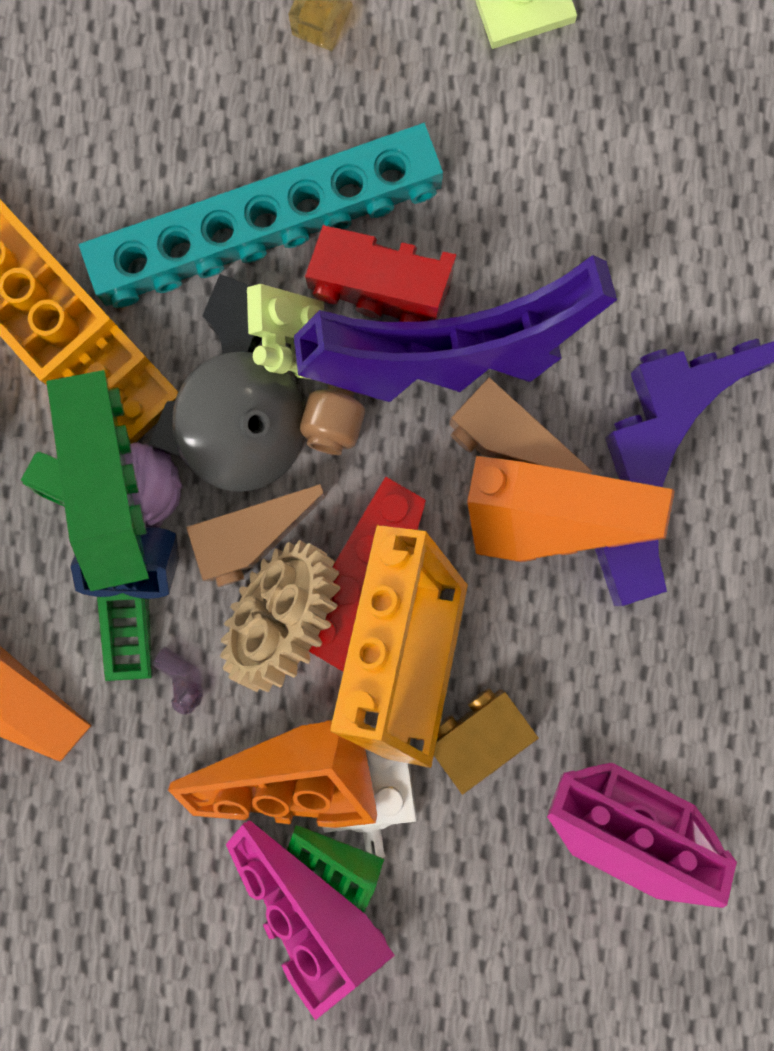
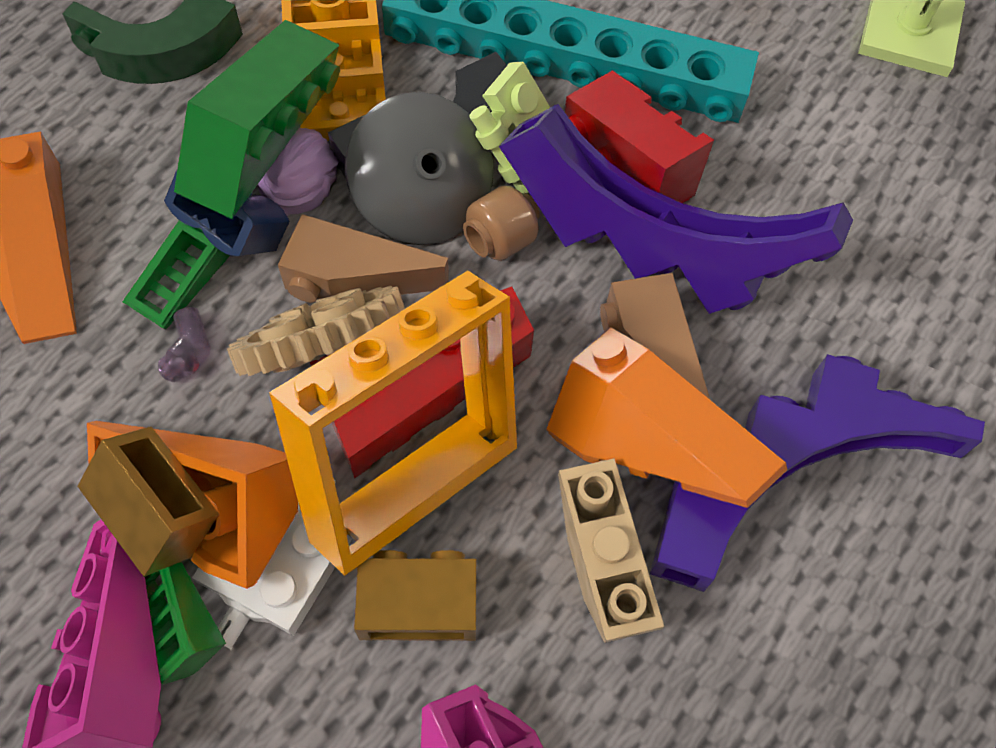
camera: 30 degrees right, 20 degrees down
(267, 819) = (147, 500): none -> pearl gold brick
(586, 622) = (607, 552): none -> tan slope

